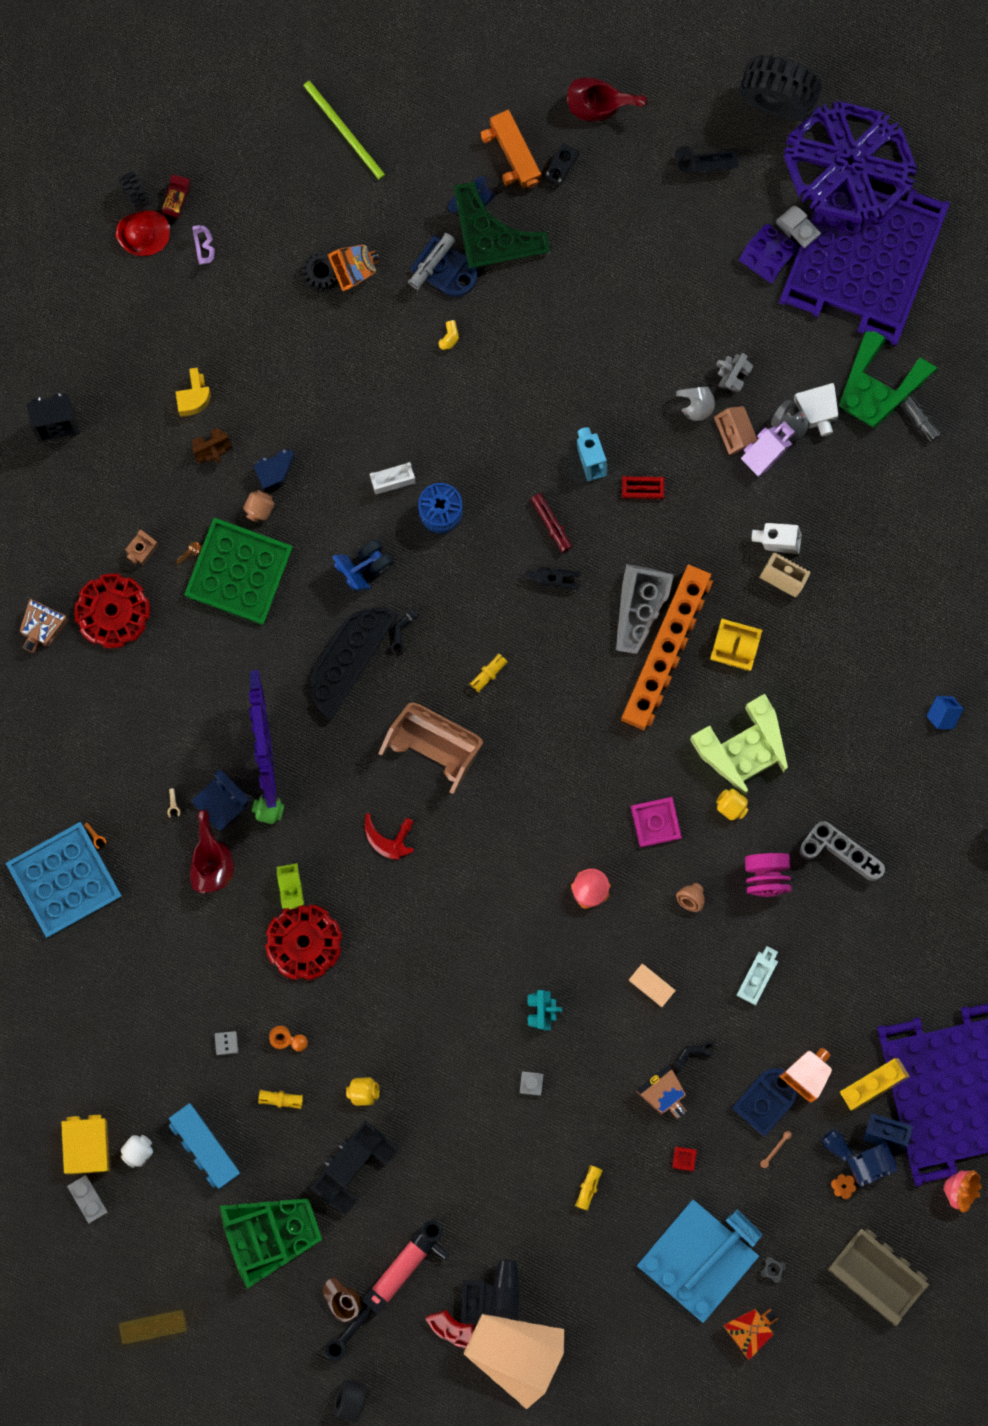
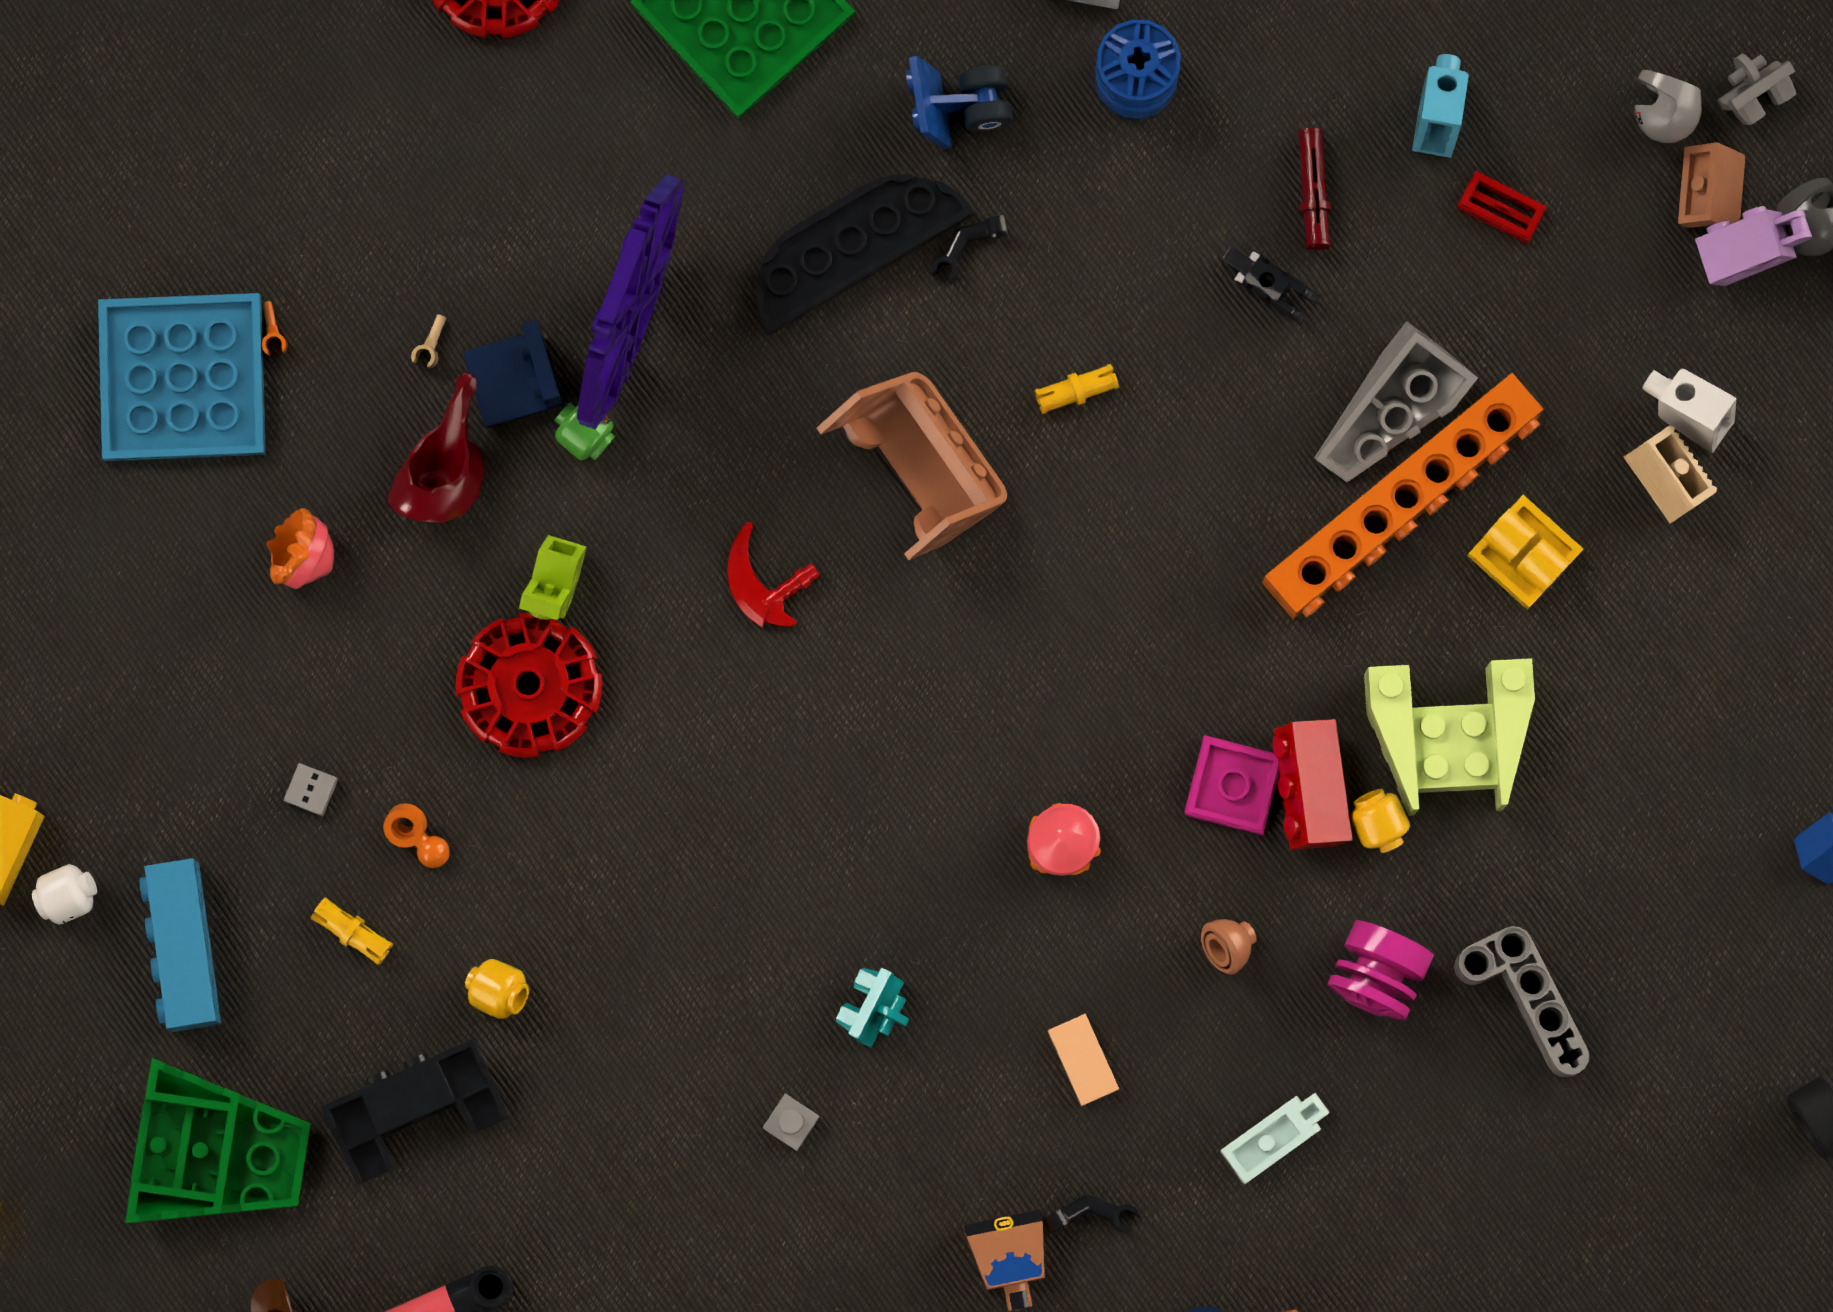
camera: 25 degrees right, 0 degrees up
(163, 933) = (300, 550): none -> hair
(692, 803) = (1312, 784): none -> brick

